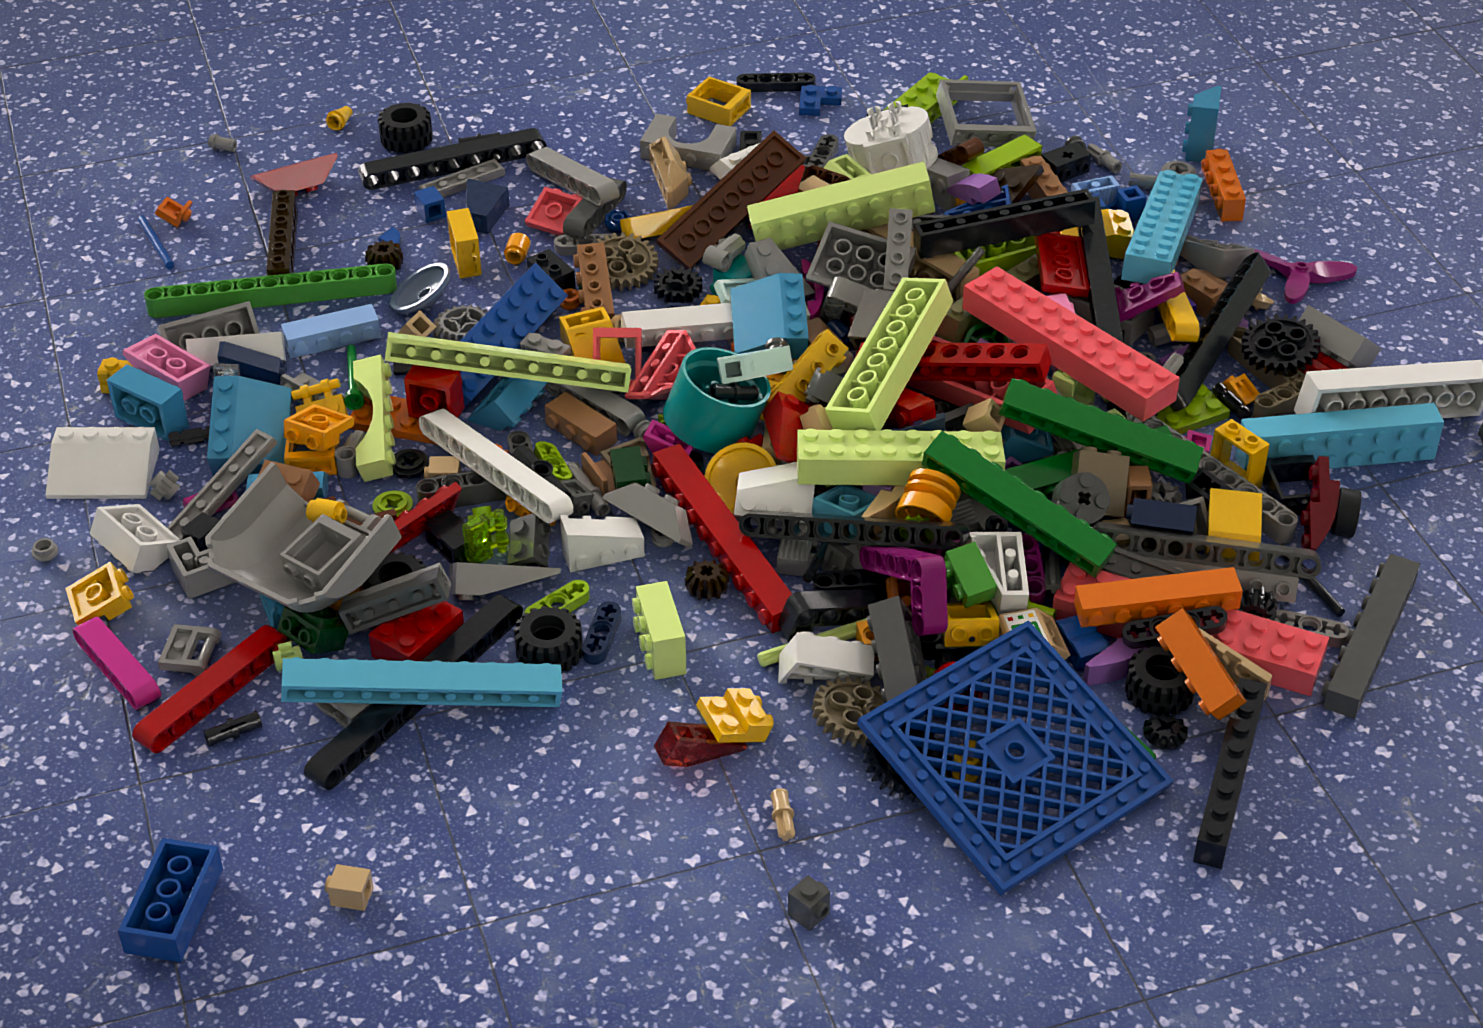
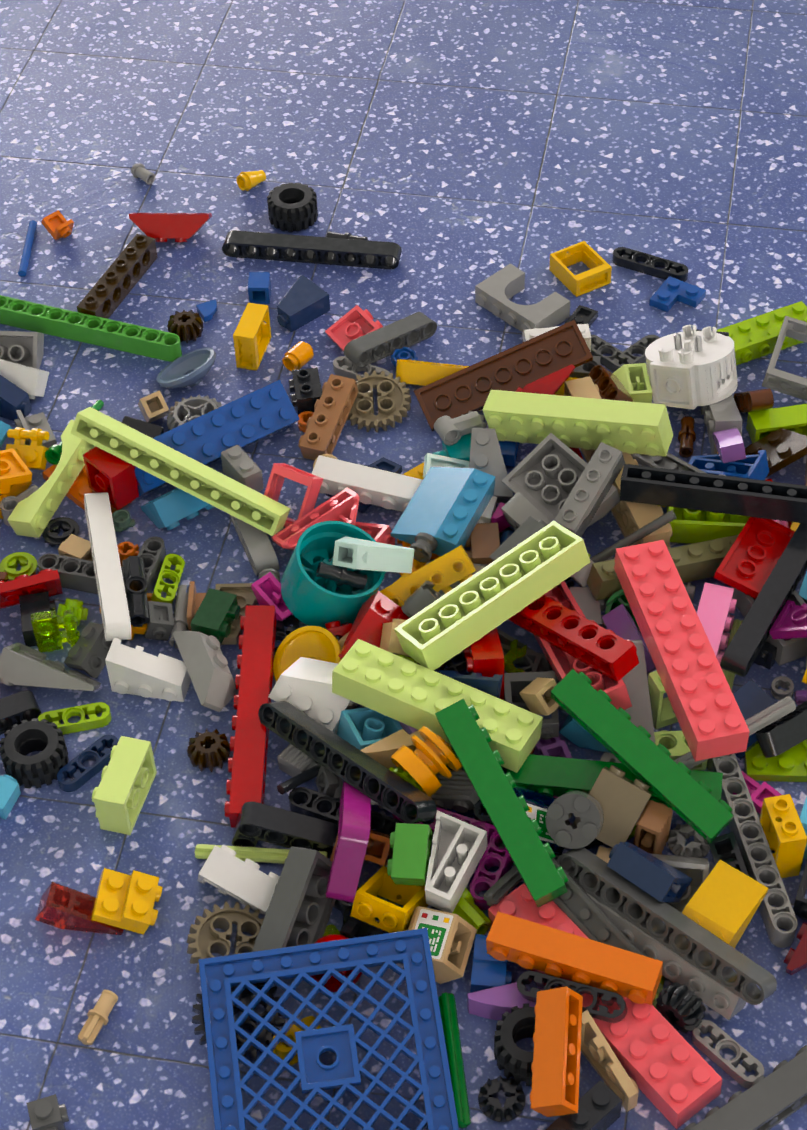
camera: 30 degrees right, 5 degrees up
(331, 331) = (92, 381): light blue brick -> none
(458, 181) = (315, 272): light grey tile -> none
(572, 176) = (388, 303): light grey beam -> none
(577, 332) = (296, 454): yellow slope -> none
(580, 423) = (220, 550): medium nougat brick -> none
(669, 172) = (481, 329): tan wedge -> none
(678, 285) = (405, 442): black gear -> none
(1322, 592) = (771, 1005): black bar -> none

